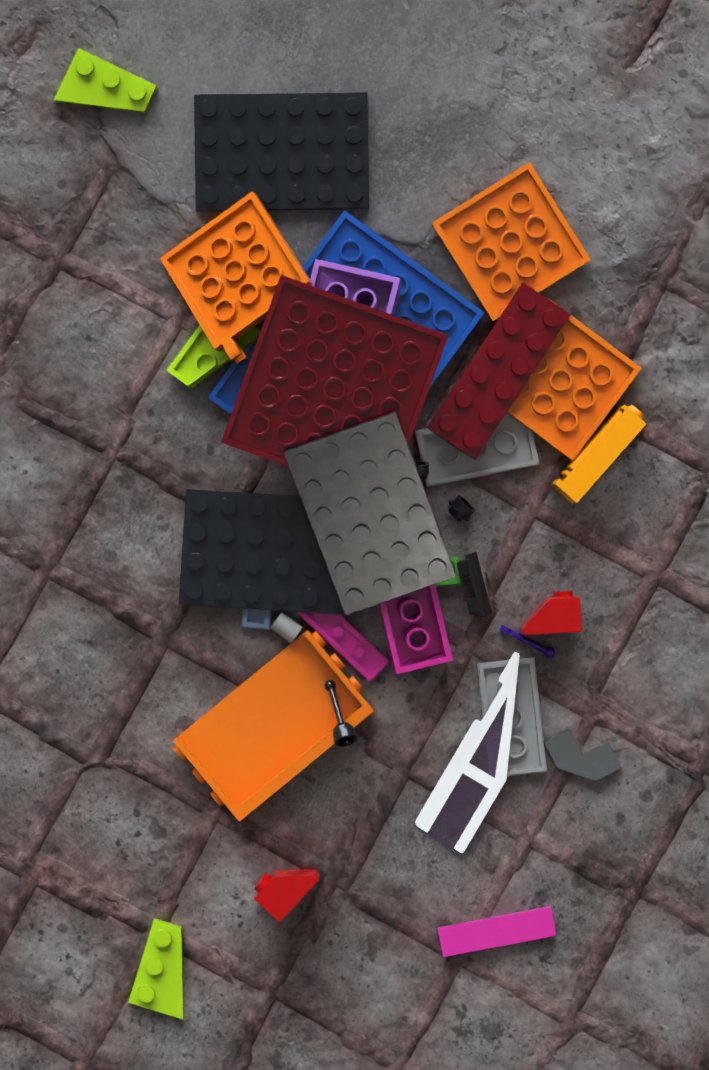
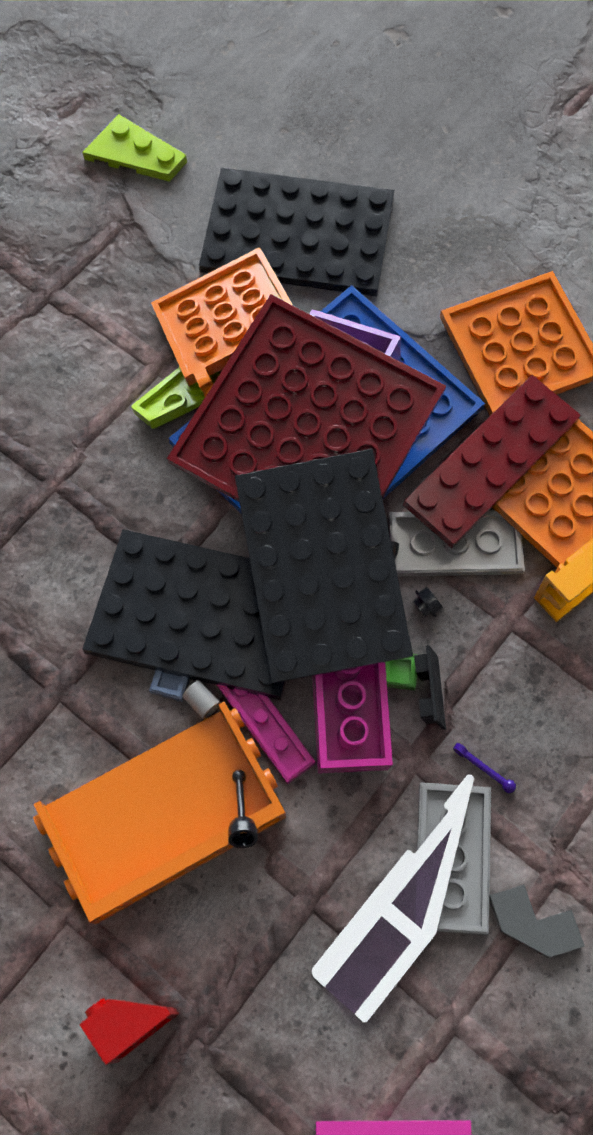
camera: 10 degrees right, 20 degrees down
(555, 615) = (525, 737): red slope -> none

